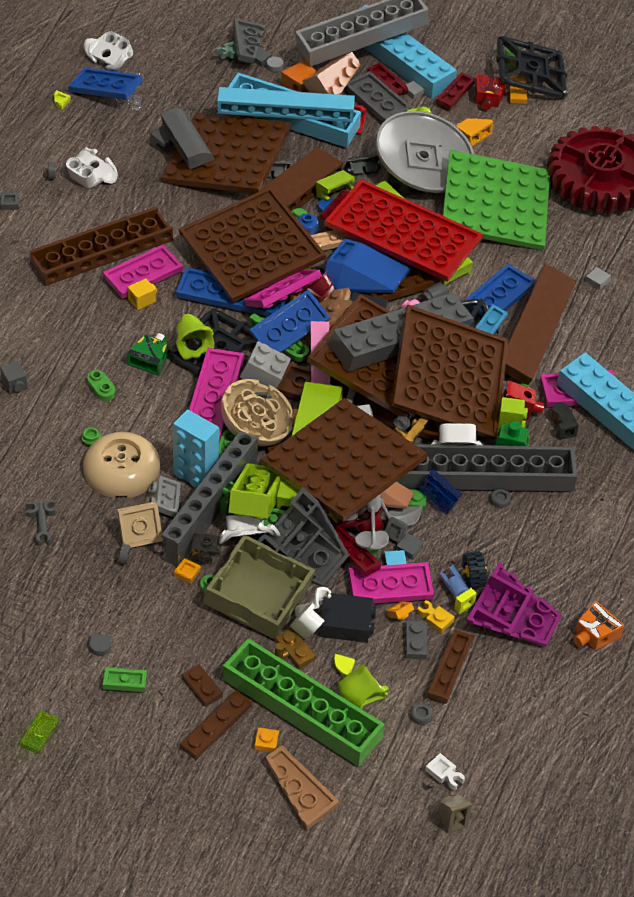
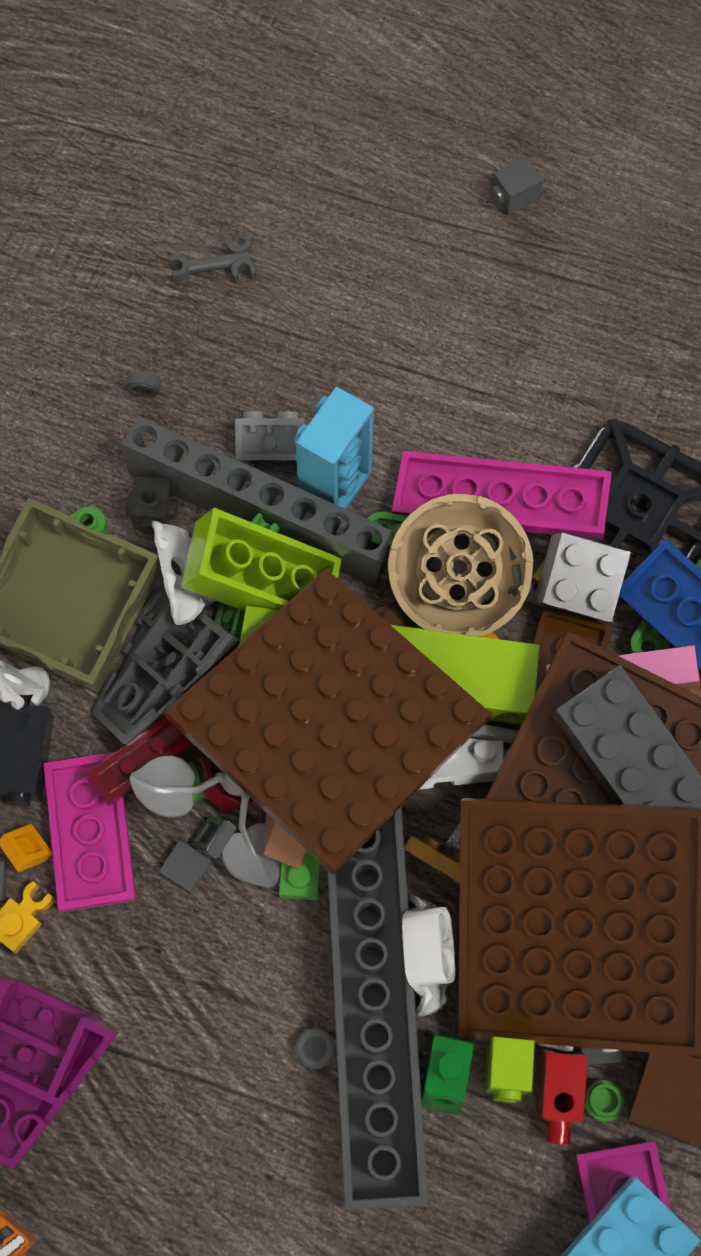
camera: 90 degrees right, 20 degrees up
(90, 435) = (400, 315): bright green plate -> none
(98, 383) = (525, 320): bright green plate -> none
(121, 474) = (367, 334): tan brick -> none
(140, 524) = (194, 395): tan tile -> none
(149, 354) = (602, 388): green torso -> none
(187, 570) = (115, 486): light orange tile -> none
(189, 328) = (649, 436): lime piece -> none
(395, 557) = (149, 840): medium azure tile -> none
(440, 491) = (287, 929): clear blue plate -> none
(454, 584) = (91, 952): medium blue hinge -> none
(465, 601) = (45, 971): neon yellow tile -> none
(474, 569) = (107, 987): black wheel -> none
(565, 421) = (547, 1187): pearl dark grey leg -> none

